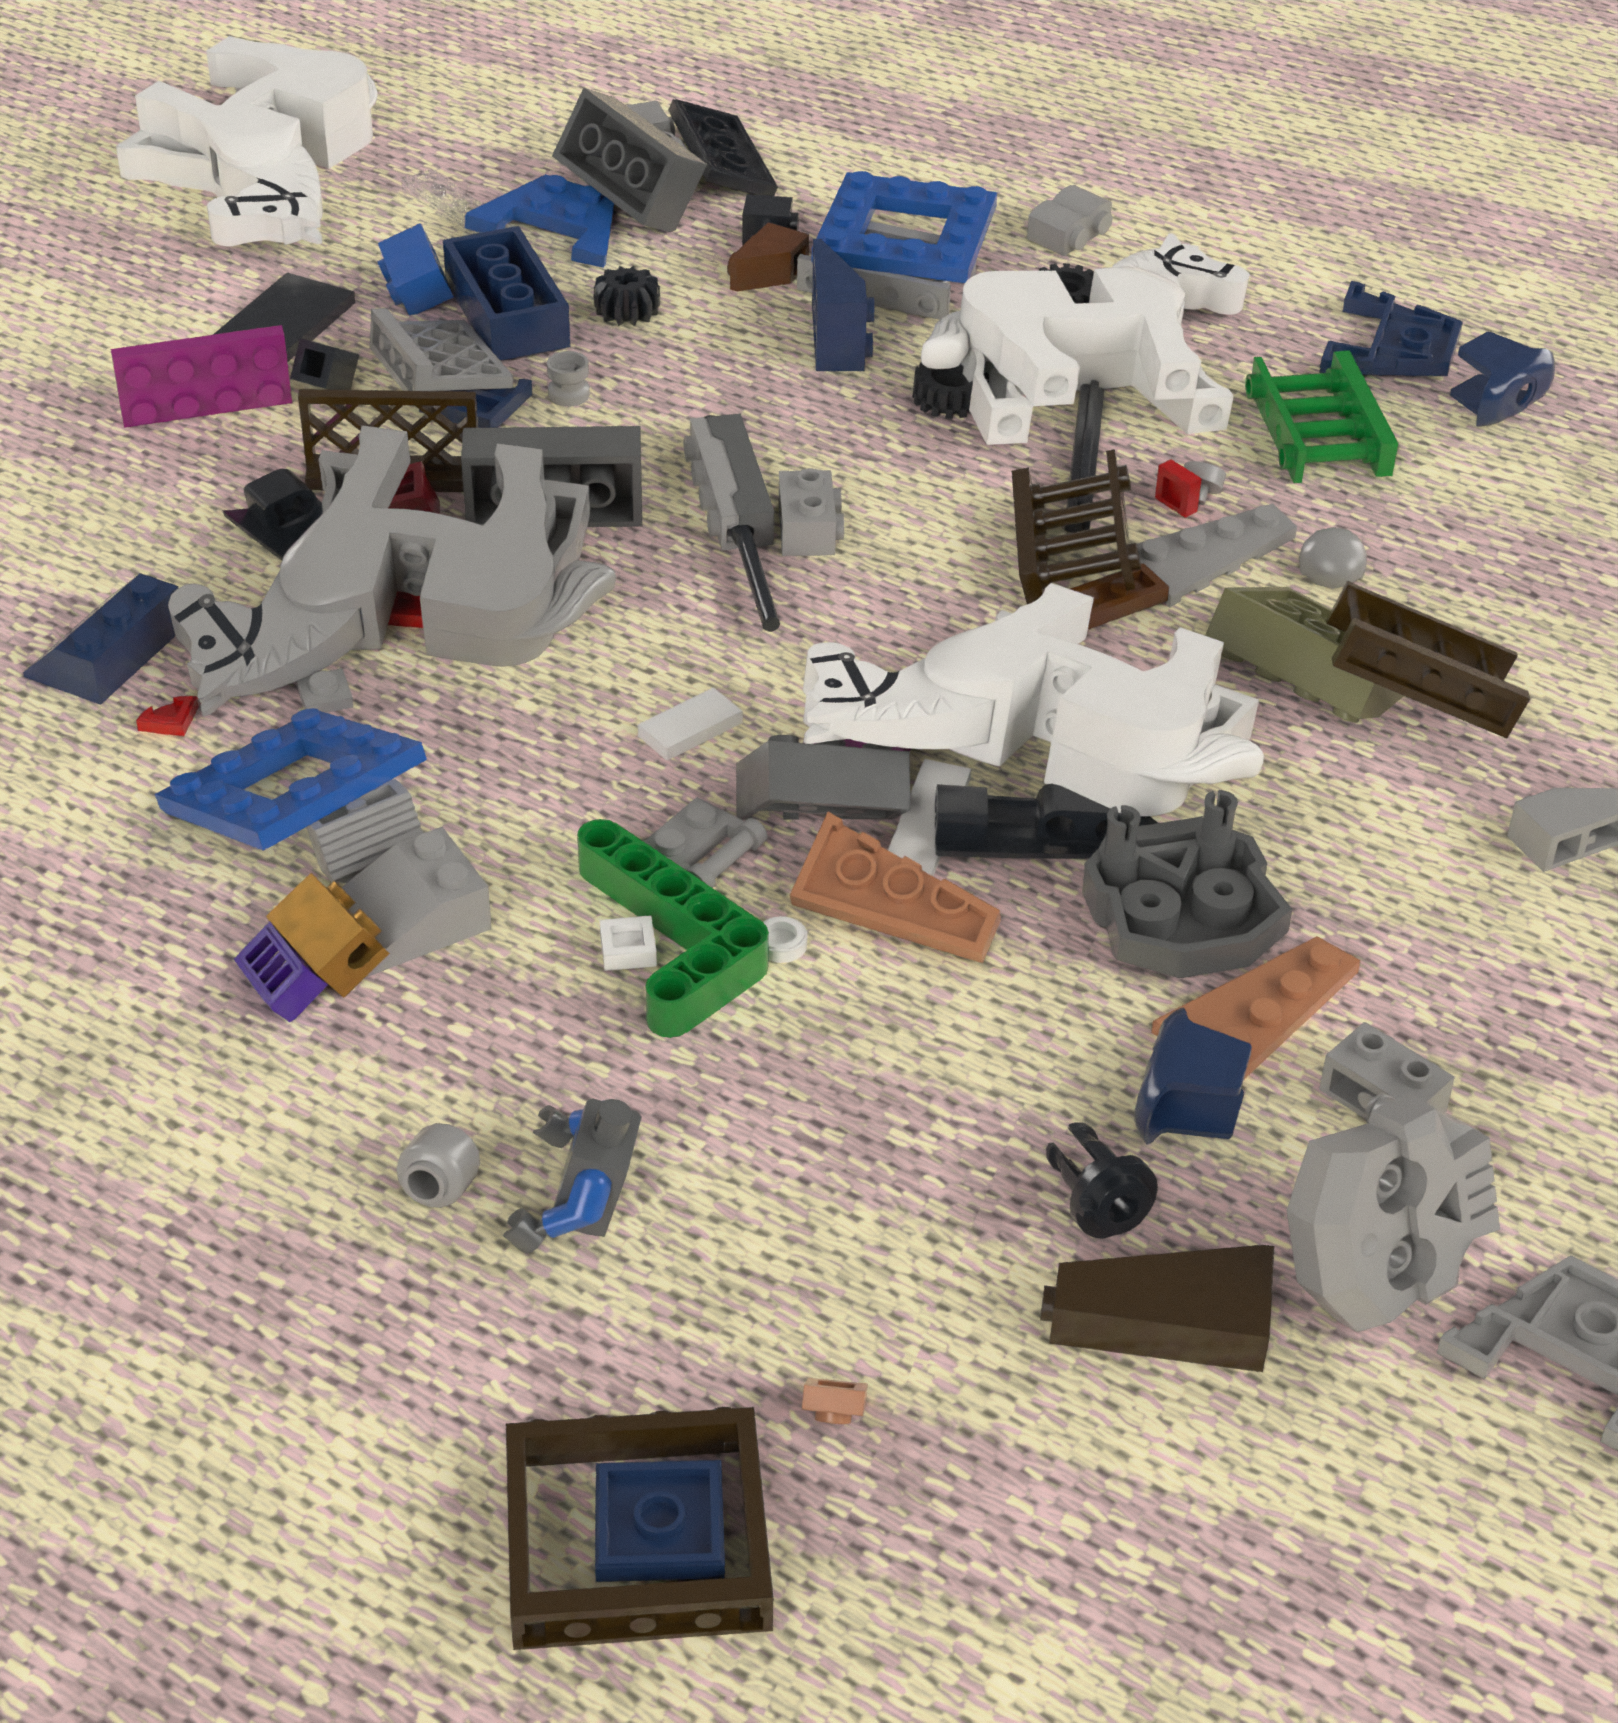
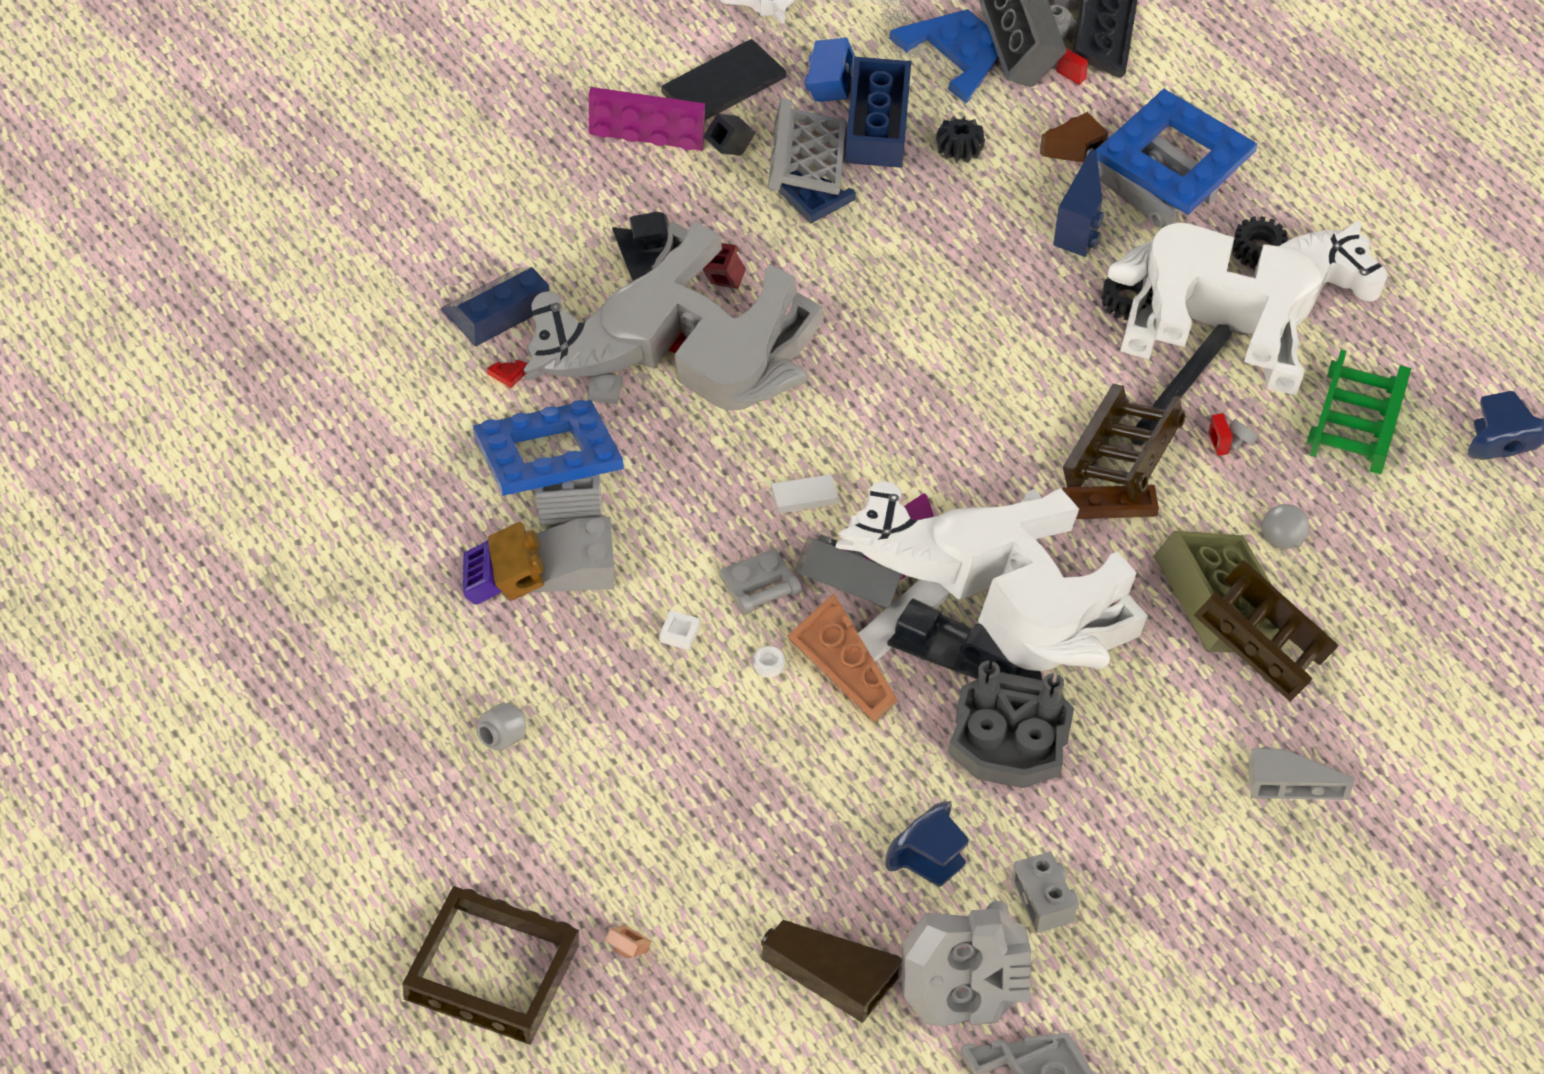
camera: 25 degrees right, 10 degrees up
(440, 467) = (750, 238): dark brown fence -> none
(568, 378) = (880, 198): light grey wheel -> none
(589, 455) = (839, 284): dark grey brick -> none
(592, 1174) = (574, 764): torso -> none
(659, 1521) = (501, 967): dark blue plate -> none
(713, 194) = (1072, 67): none -> red tile
(721, 940) = (732, 655): green beam -> none
(734, 498) = (928, 335): piece -> none
(763, 209) = (1098, 102): black brick -> none
(809, 513) = (967, 365): light grey brick -> none
(1069, 220) = (1308, 177): light grey brick -> none
(1110, 1192) = (840, 889): black piece -> none
(1204, 552) = (1203, 488): light grey wing -> none
(1273, 998) = (1012, 816): nougat wing -> none
(1406, 340) = (1474, 370): dark blue wing -> none

